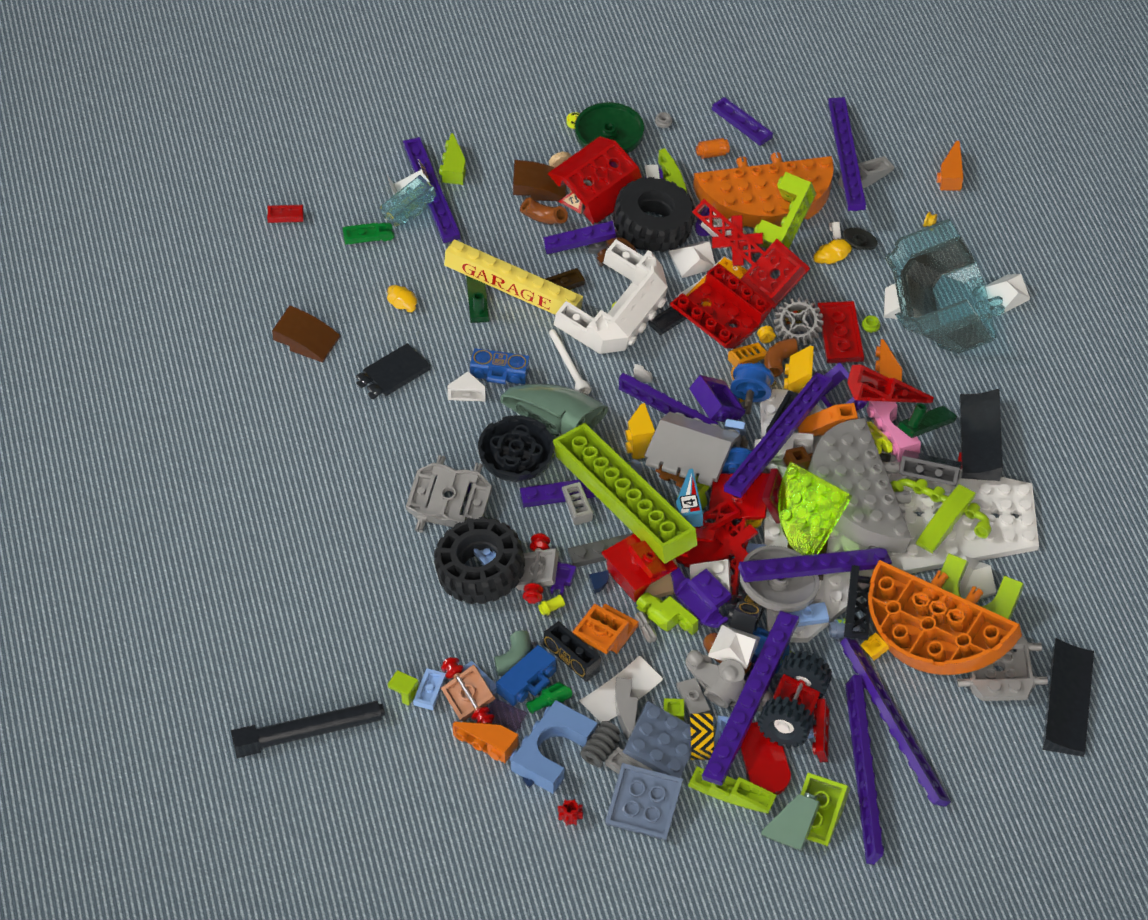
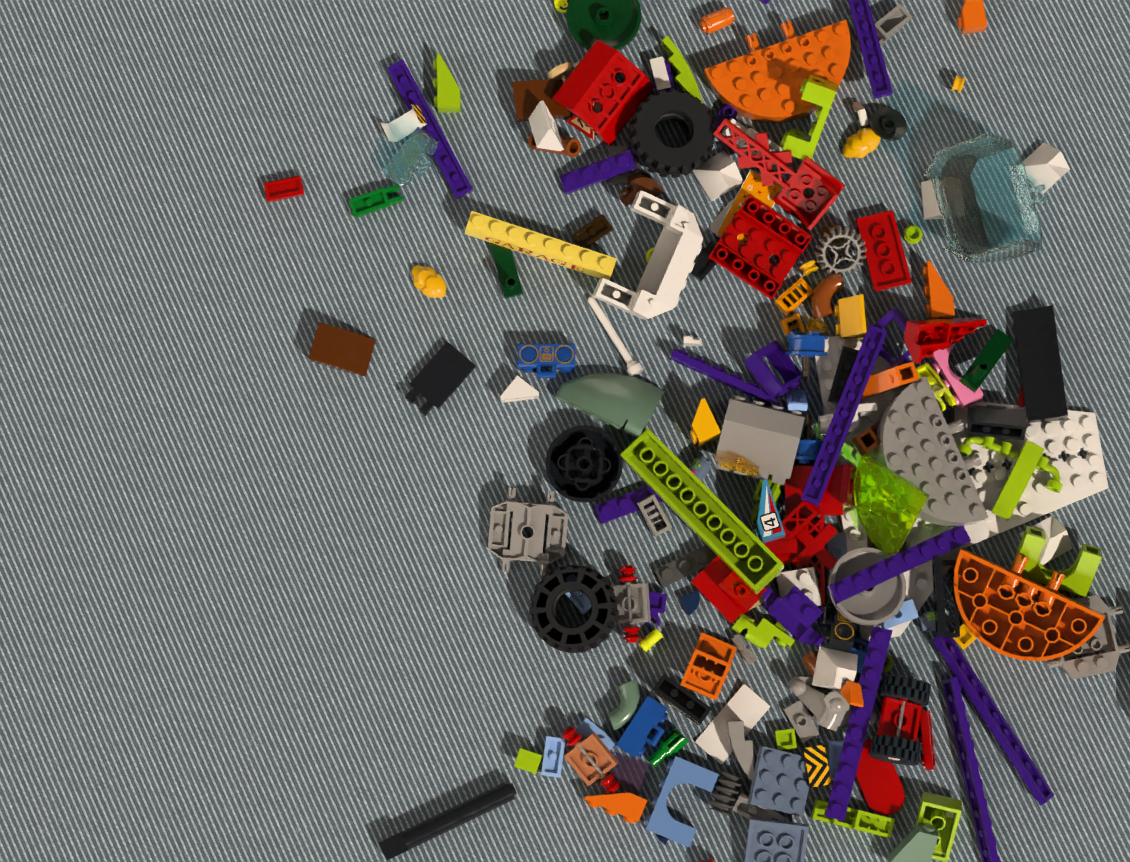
camera: 10 degrees left, 30 degrees up
(535, 191) = (545, 128): none -> white slope
(668, 457) = (740, 466): none -> clear yellow plate
(748, 660) = (852, 693): none -> orange slope

